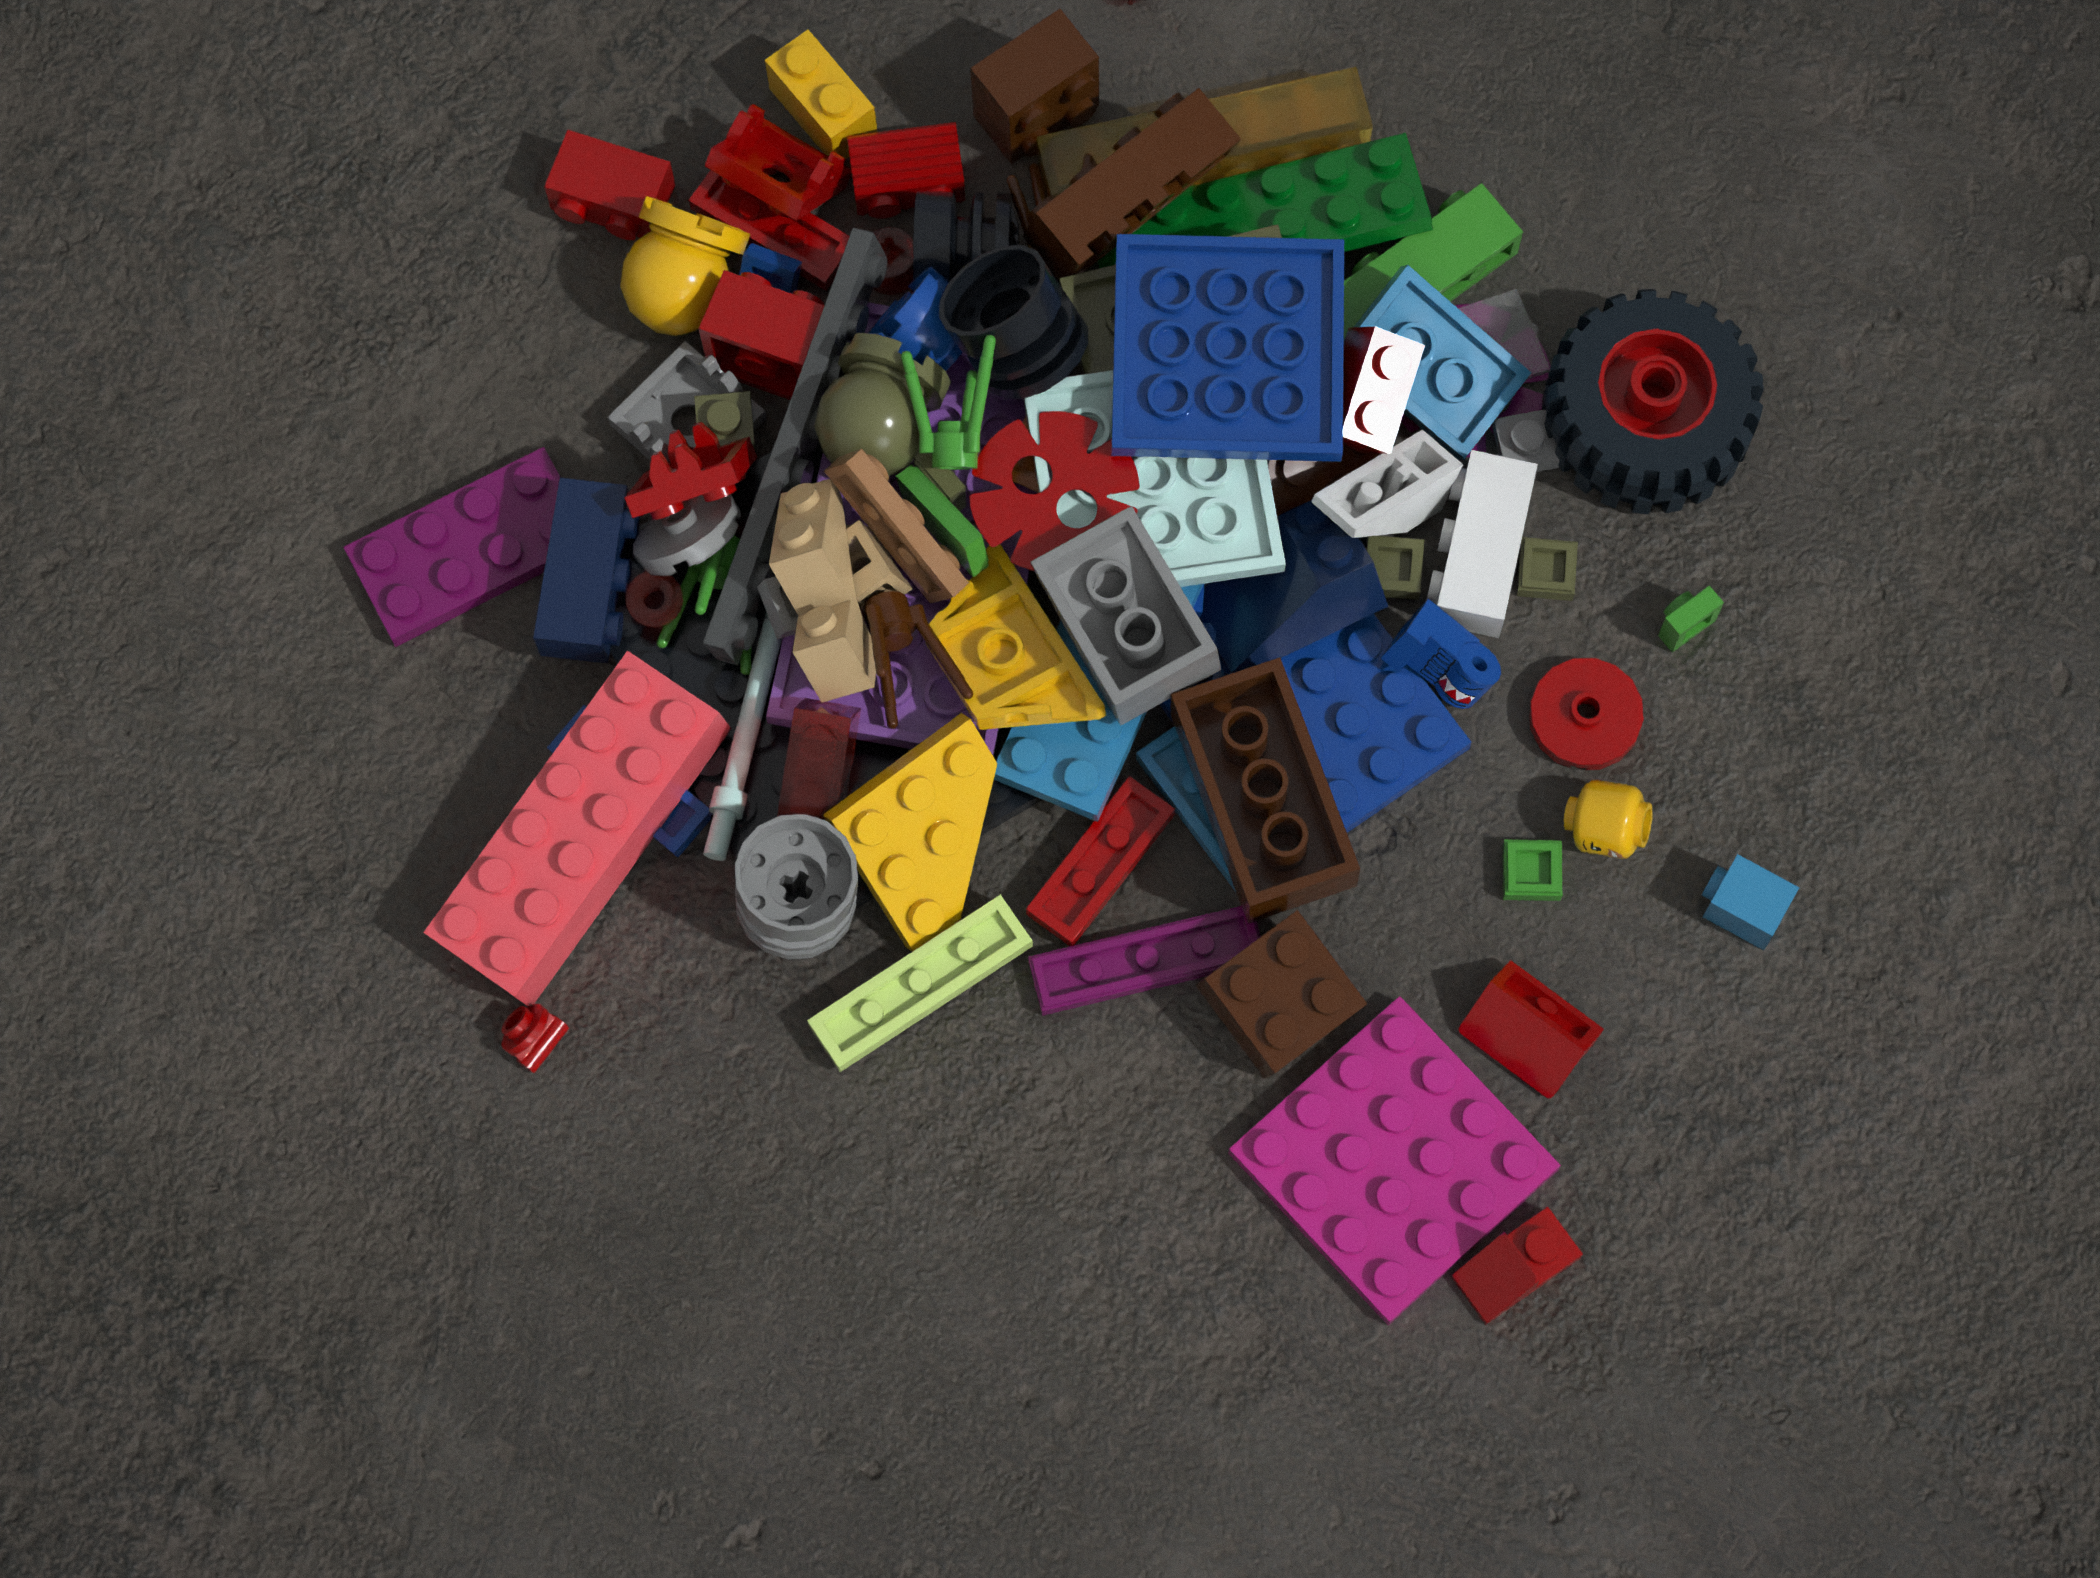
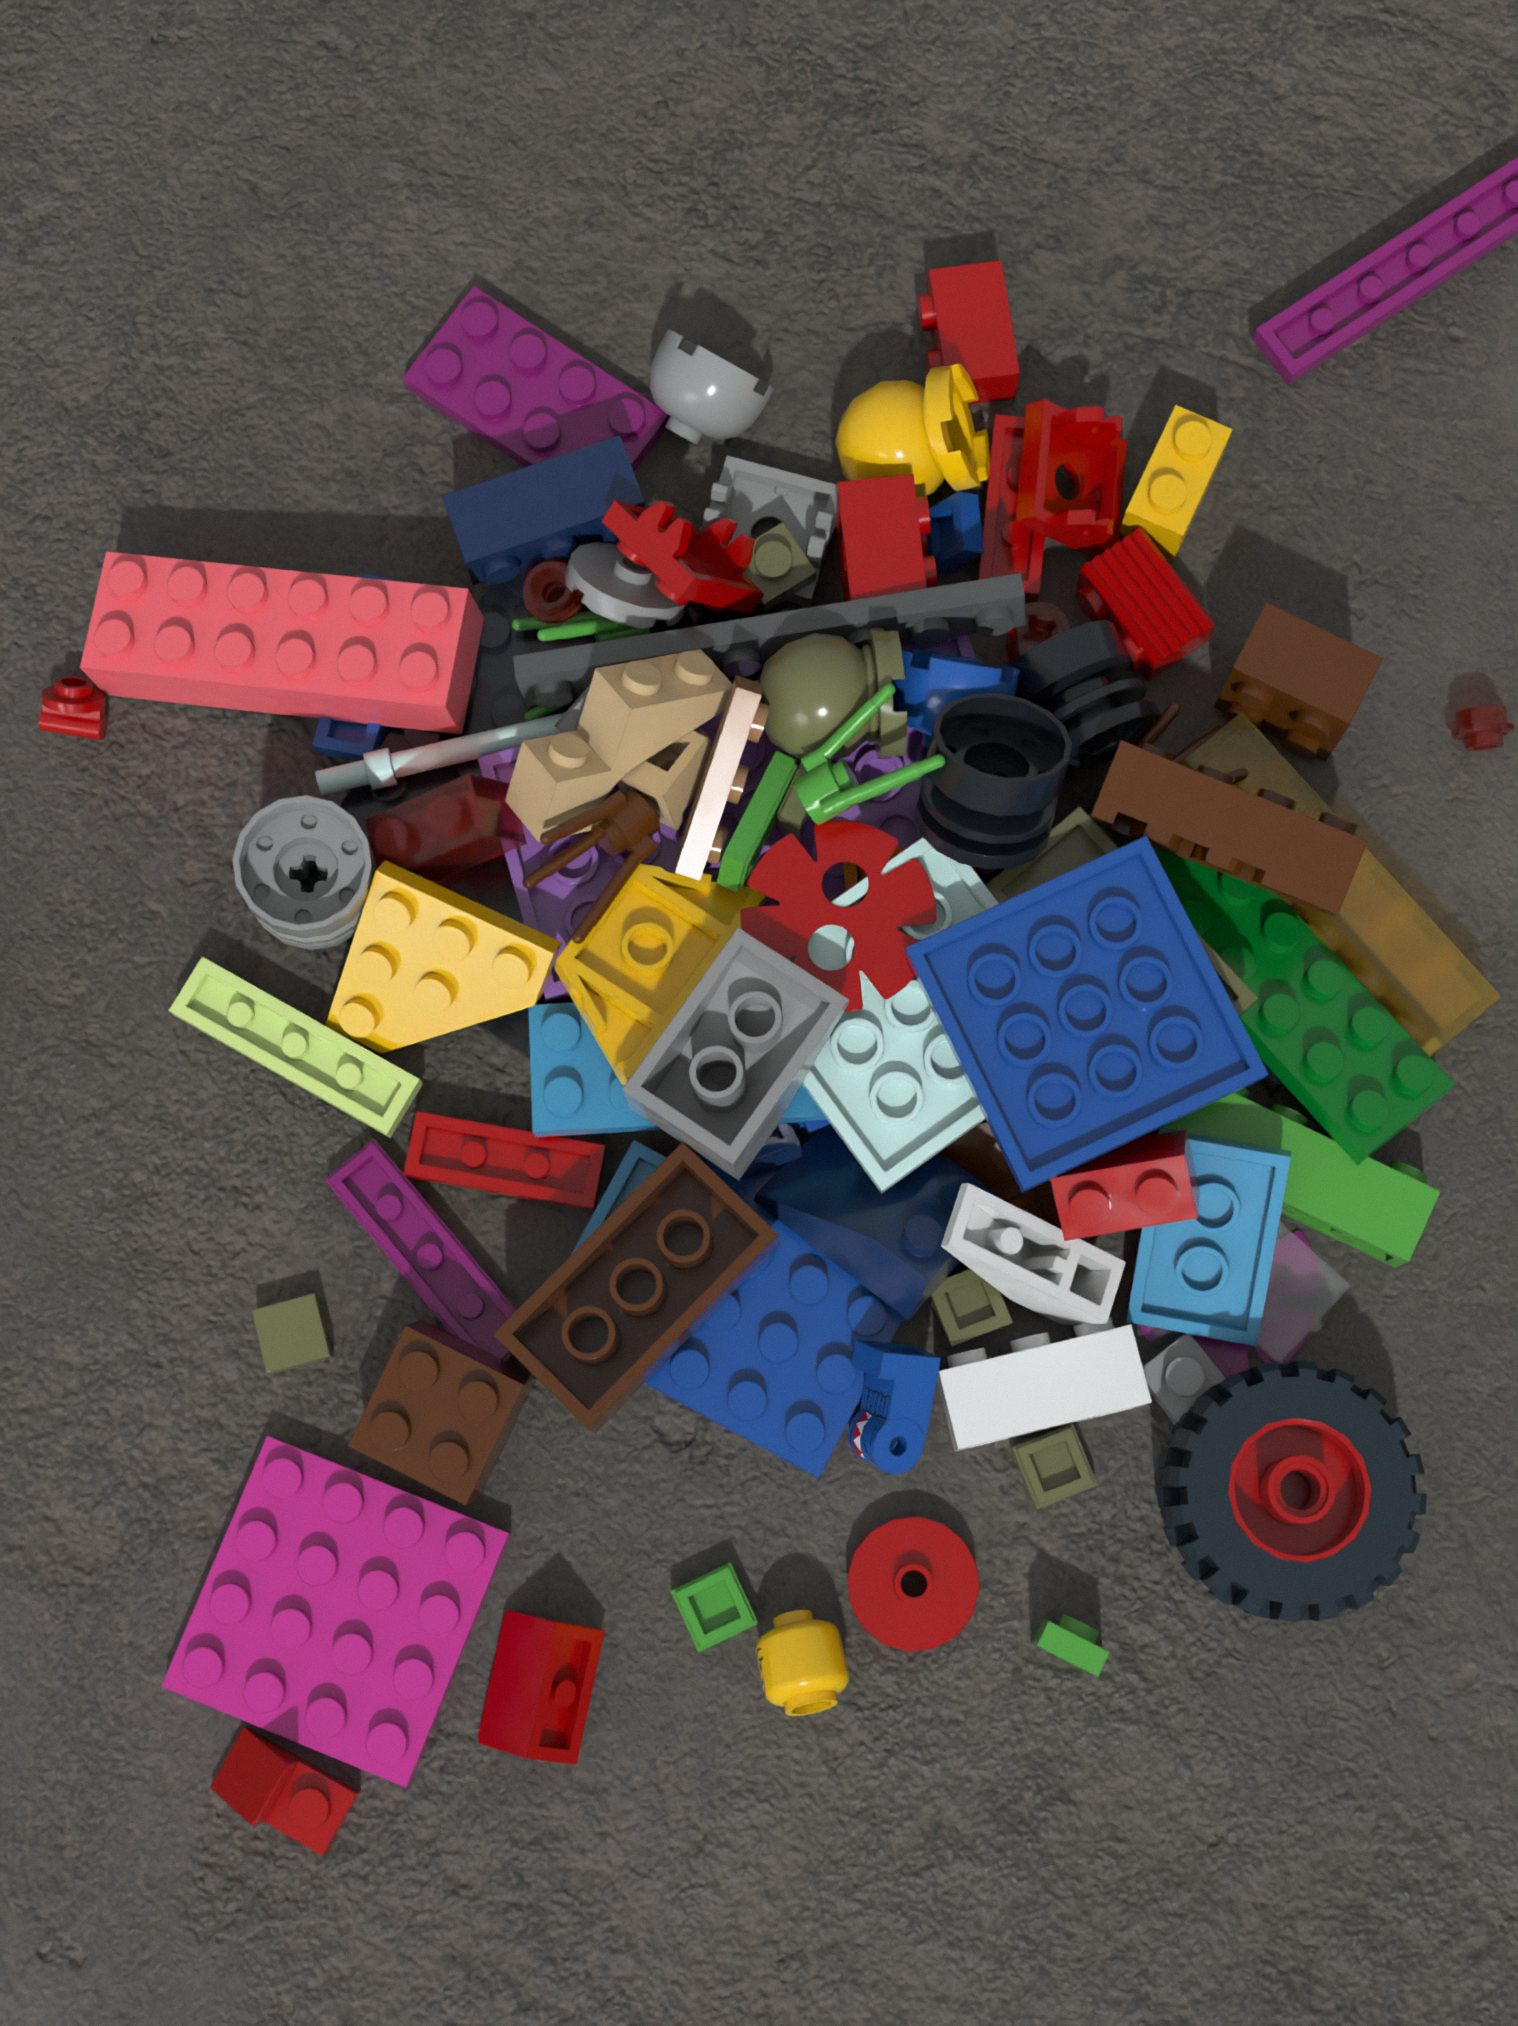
camera: 65 degrees right, 5 degrees up
(545, 406) = (704, 391): none -> light grey cylinder
(1154, 1095) = (292, 1333): none -> olive tile
(1748, 900) = (785, 1856): dark azure brick -> none

